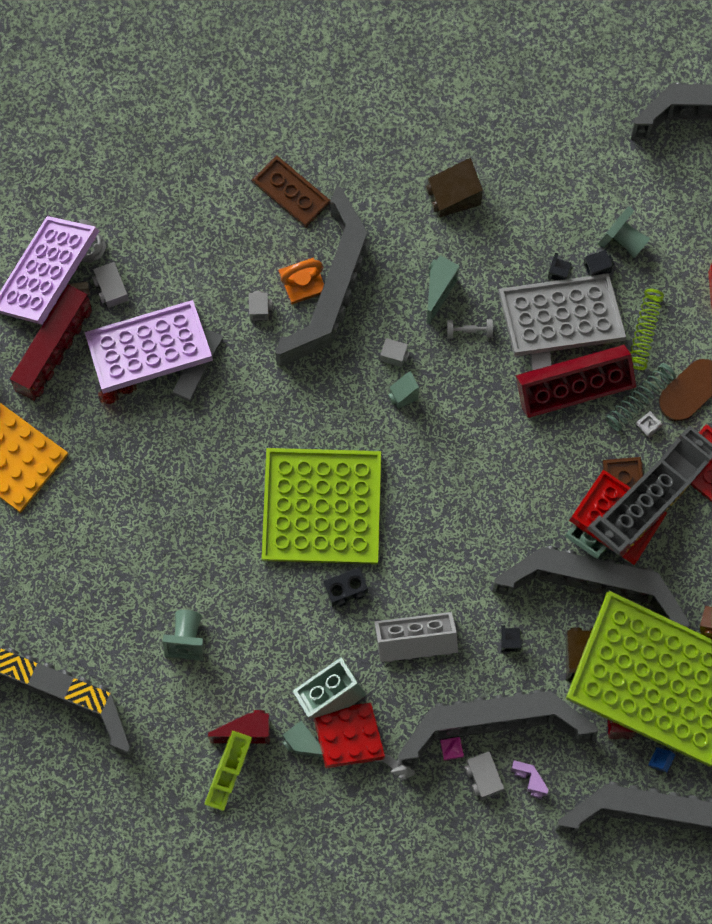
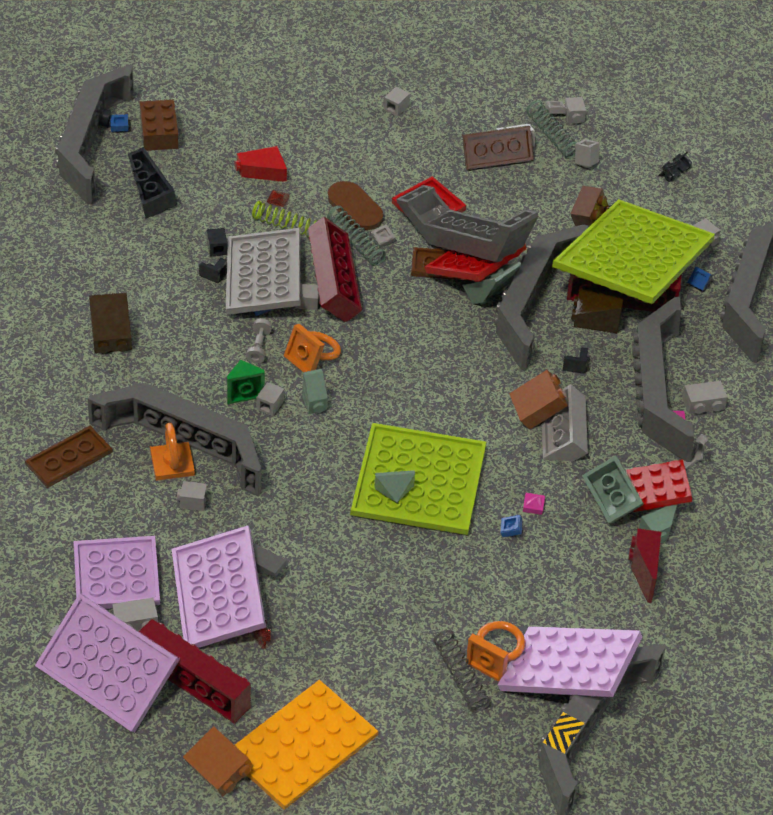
camera: 85 degrees left, 25 degrees down
(102, 666) = (571, 661): none -> lavender plate
(107, 593) = (490, 658): none -> orange tile
(127, 552) = (473, 709): none -> dark grey piece
(159, 260) = (117, 570): none -> lavender plate
(184, 642) = (544, 598): sand green plant -> none
(227, 770) = (683, 572): lime slope -> none
(277, 599) = (511, 526): none -> blue tile
(297, 483) = (394, 484): none -> sand green slope
(312, 618) = (533, 503): none -> dark pink tile
(343, 583) = (507, 470): black brick -> none
(401, 320) = (244, 382): none -> green slope
(436, 604) = (538, 399): none -> dark orange brick
(442, 280) = (212, 349): sand green slope -> none
(460, 372) = (306, 349): none -> orange tile
(536, 784) = (710, 364): lavender slope -> none
(625, 234) = (188, 218): sand green plant -> none
(660, 186) = (152, 186): none -> black wedge
(684, 312) = (278, 198): none -> clear red slope

